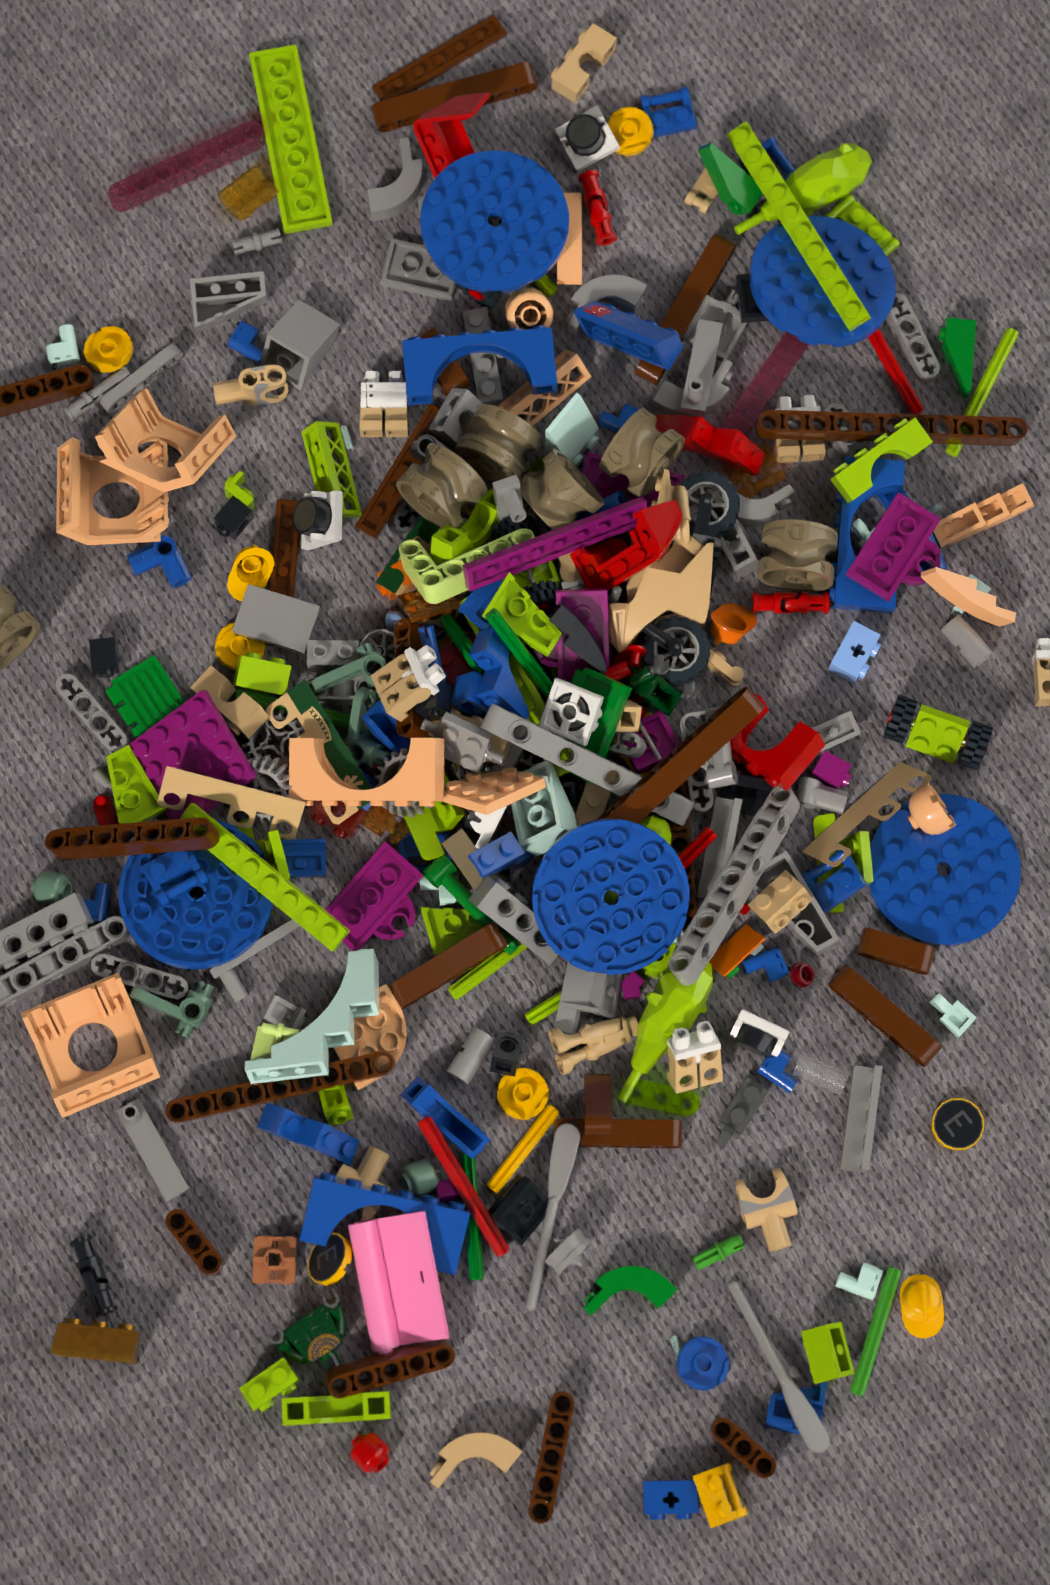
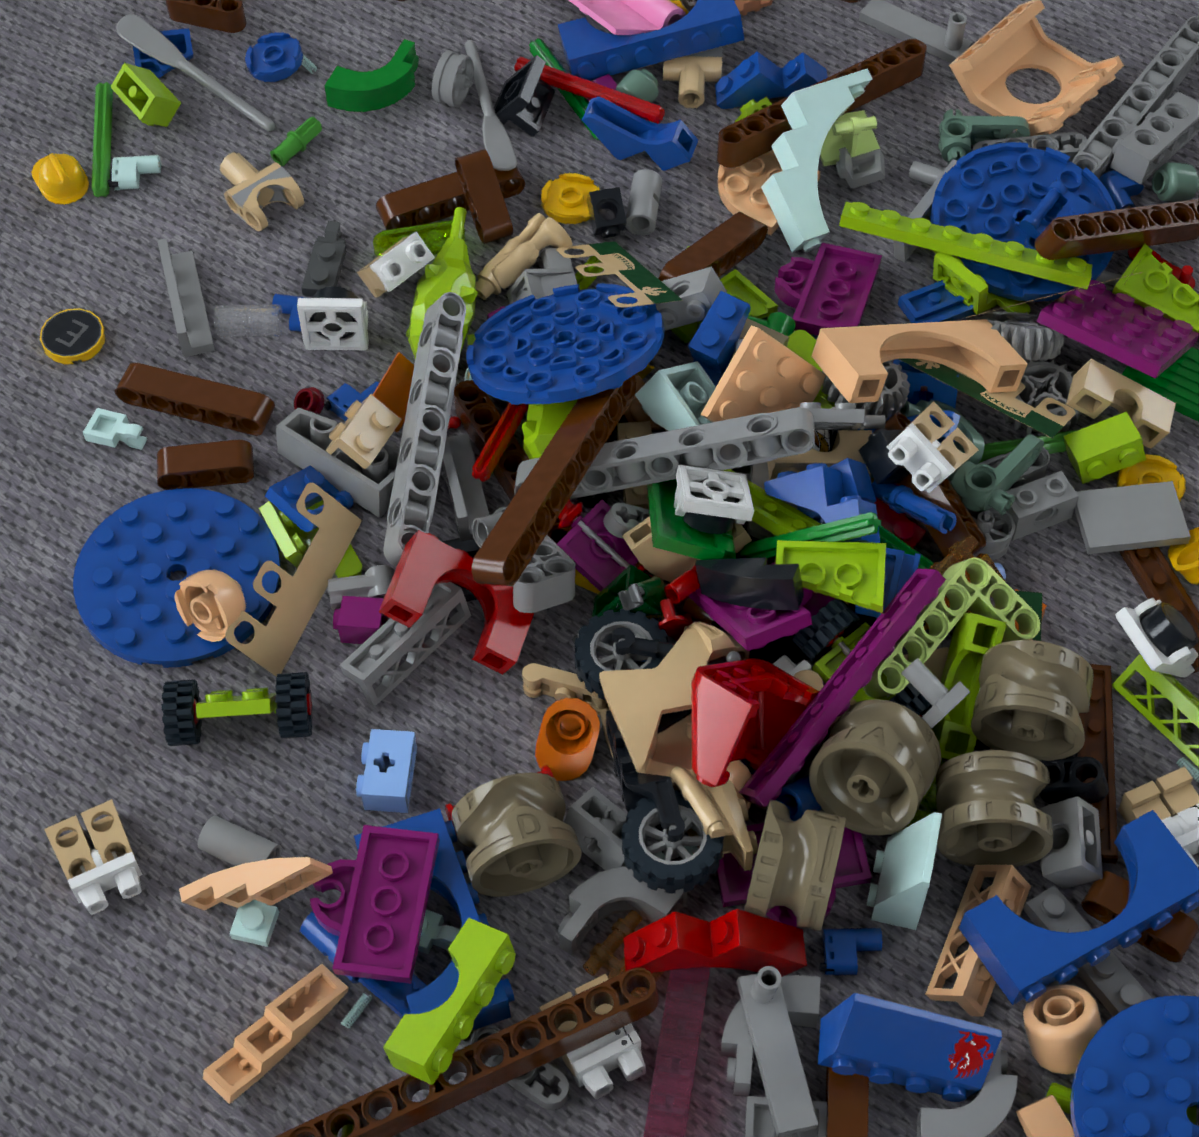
camera: 160 degrees right, 20 degrees down
(522, 1149) = (544, 154): yellow axle -> none
(527, 967) = (618, 261): none -> piece

